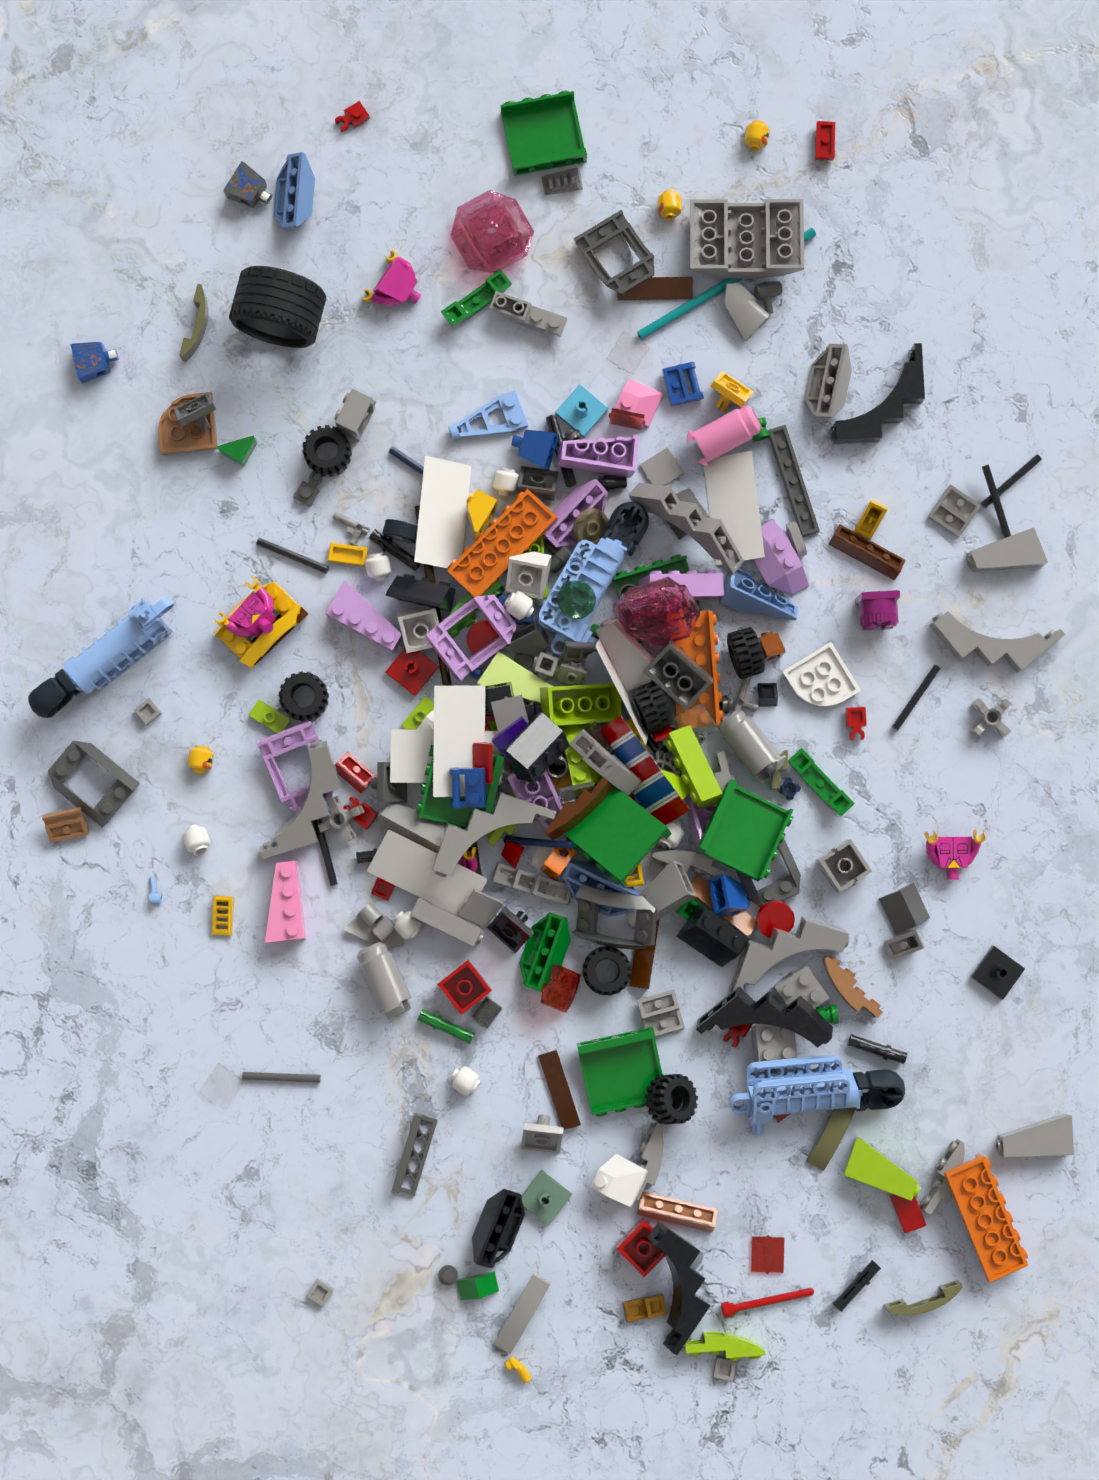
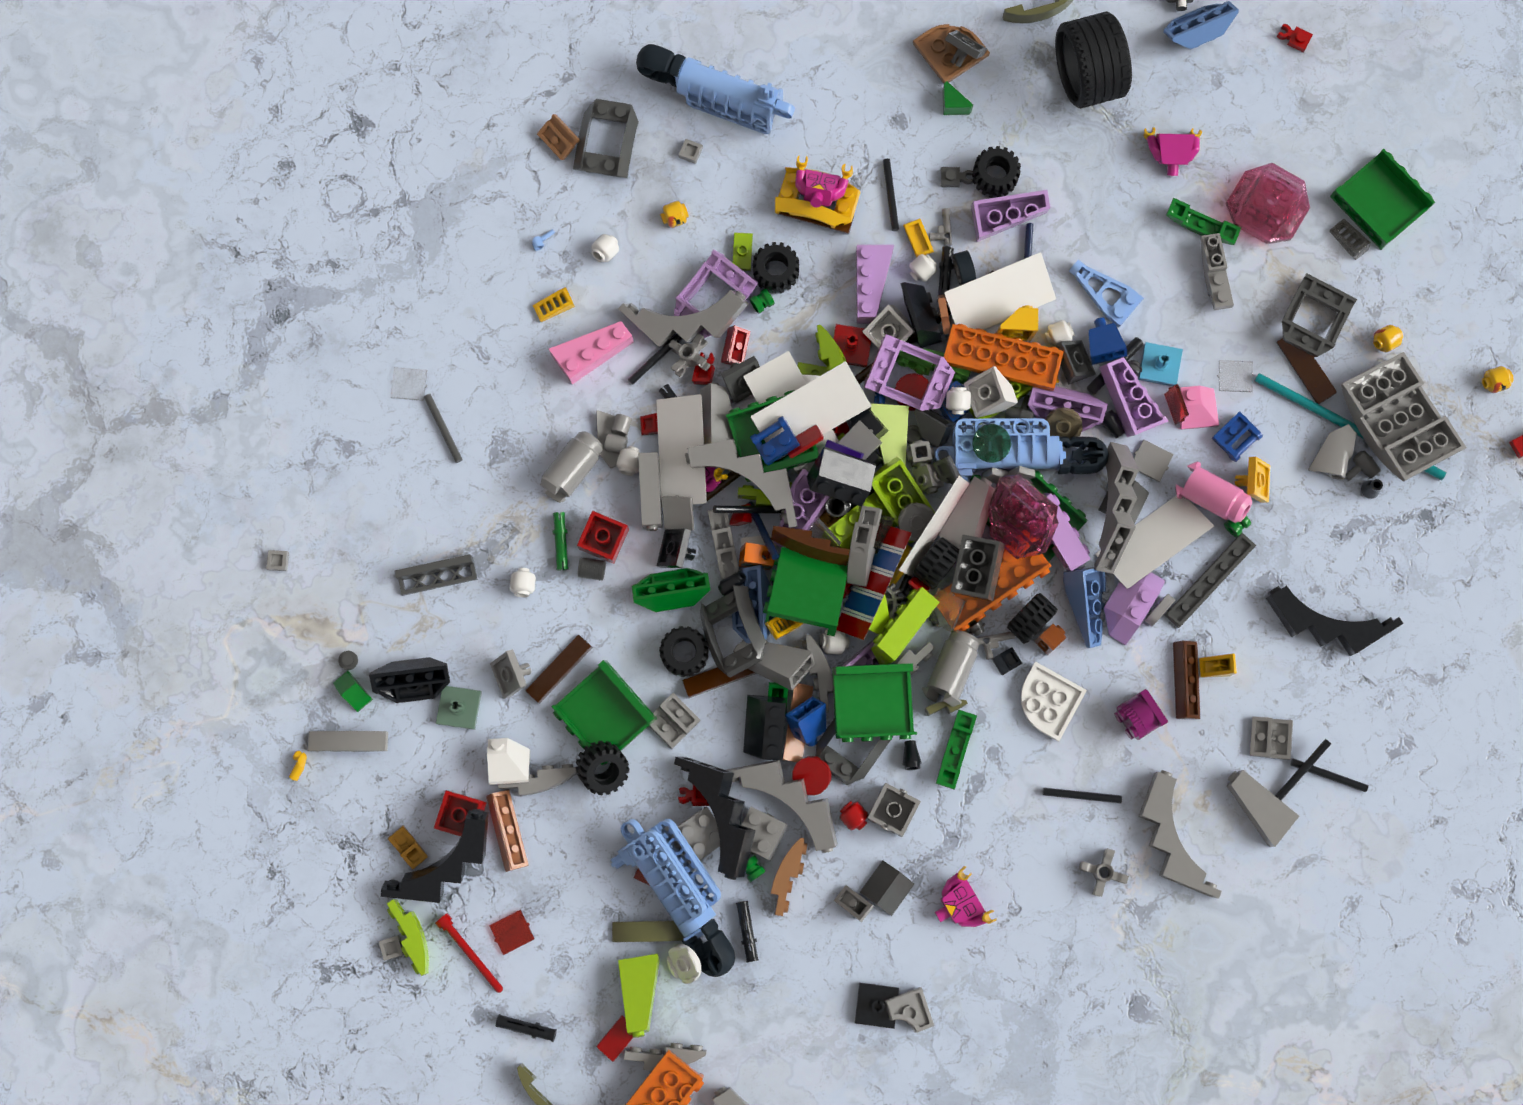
camera: 70 degrees right, 5 degrees down
(327, 726) = (761, 301): none -> green wheel
(355, 414) = (1041, 175): light grey brick -> none
(369, 467) = (1005, 212): none -> lavender wedge
(410, 692) = (829, 350): none -> lime slope
(432, 572) = (944, 314): none -> nougat tile
(510, 850) = (744, 509): none -> black bar
(562, 988) = (646, 619): clear red slope -> none
(569, 900) = (726, 585): none -> black cone
(606, 703) = (915, 519): none -> light grey tile
(611, 594) = (994, 474): none -> light grey tile
(791, 298) = (1371, 488): none -> black cone
(794, 788) = (939, 725): dark blue plate -> none
(805, 824) = (911, 756): none -> black cone
(829, 381) = (1318, 561): light grey wedge -> none
(829, 902) = (853, 815): none -> red head
(856, 719) = (1030, 750): red plate -> none
(877, 1119) = (684, 963): none -> white tile
(1015, 945) = (910, 1008): none -> light grey tile

